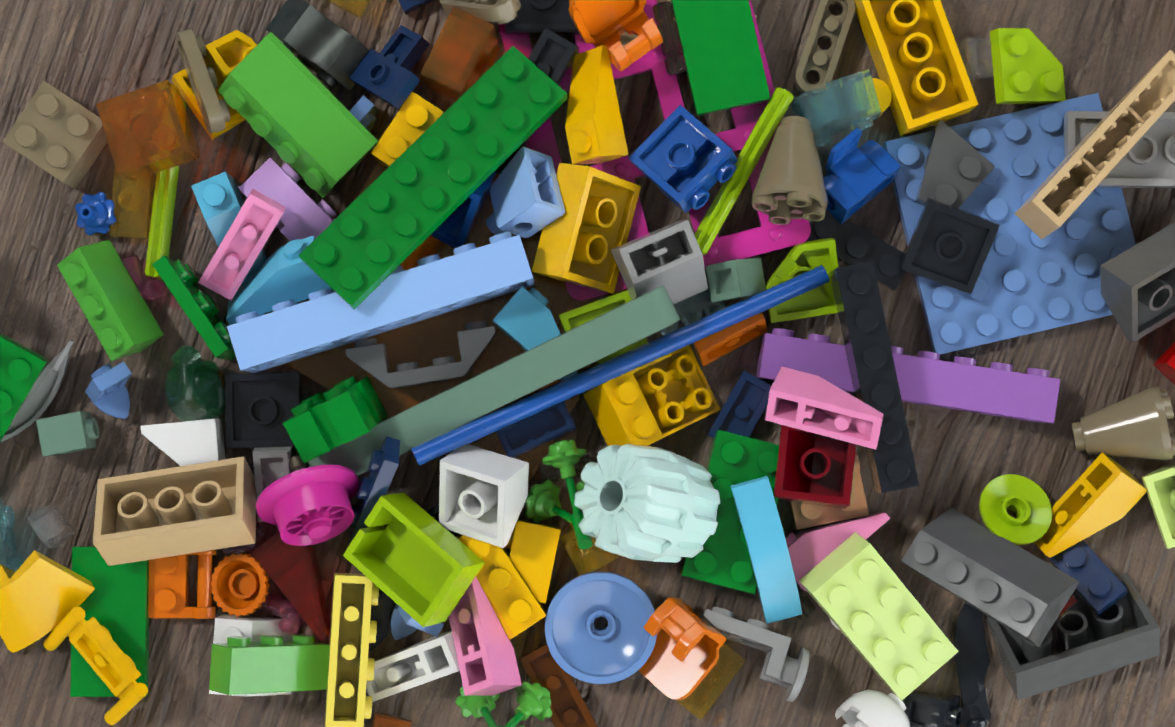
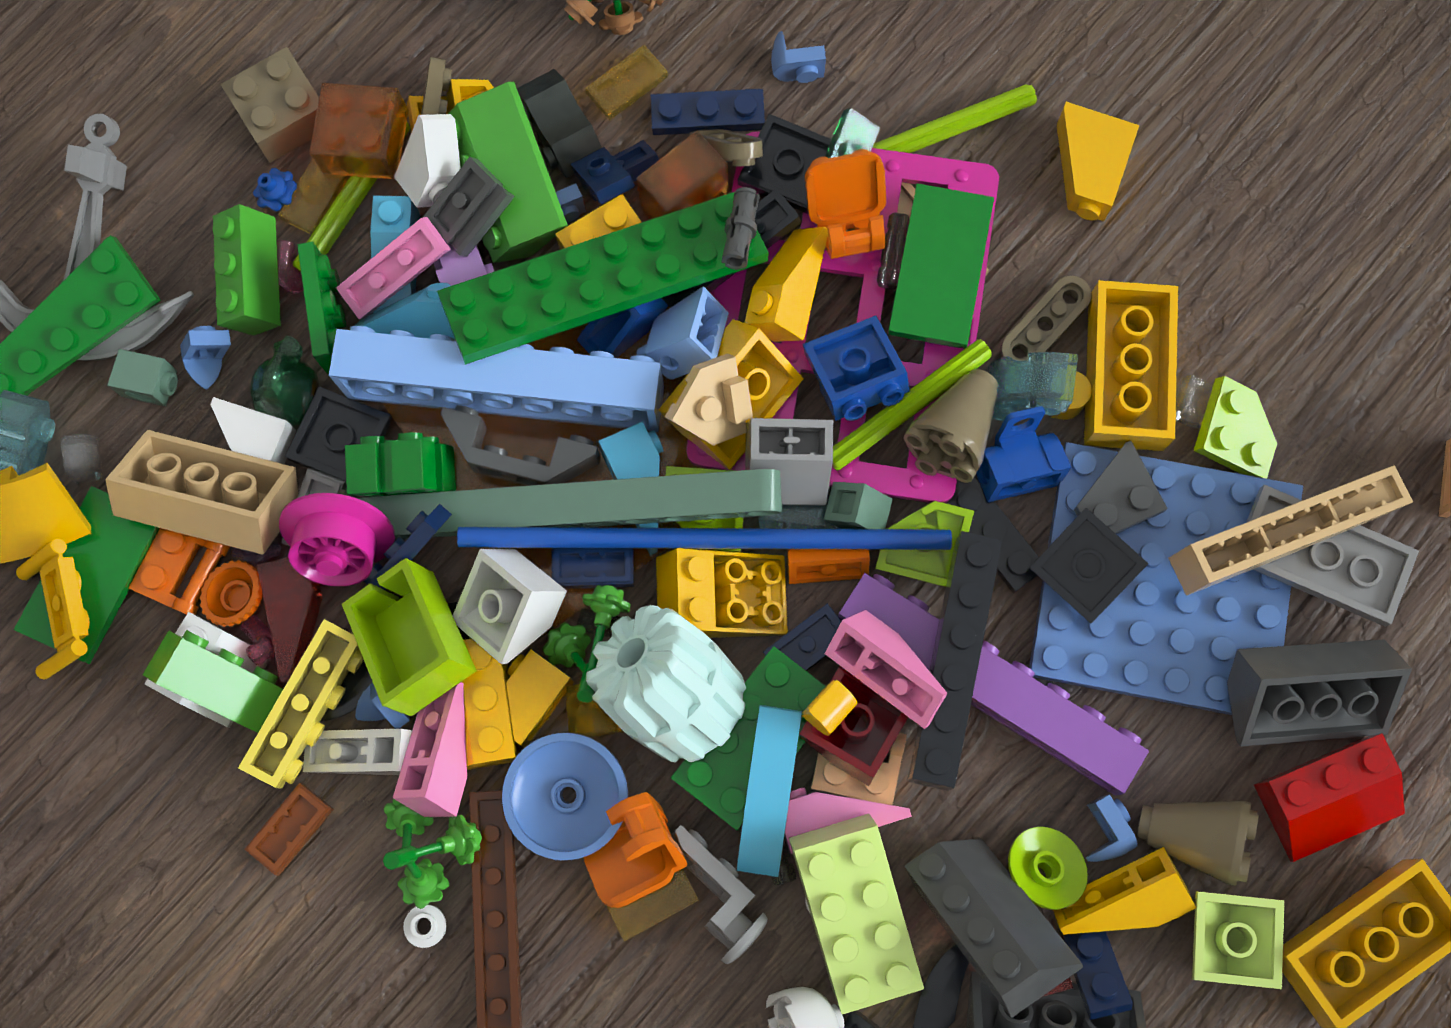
camera: 30 degrees right, 10 degrees down
(230, 135) = (429, 159): none -> white slope
(284, 163) = (469, 206): none -> dark grey plate
(535, 85) = (740, 228): none -> dark grey pin
(581, 248) = (713, 401): none -> tan plate
(790, 465) = (830, 707): none -> yellow brick
(1052, 446) = (1113, 820): none -> medium blue plate

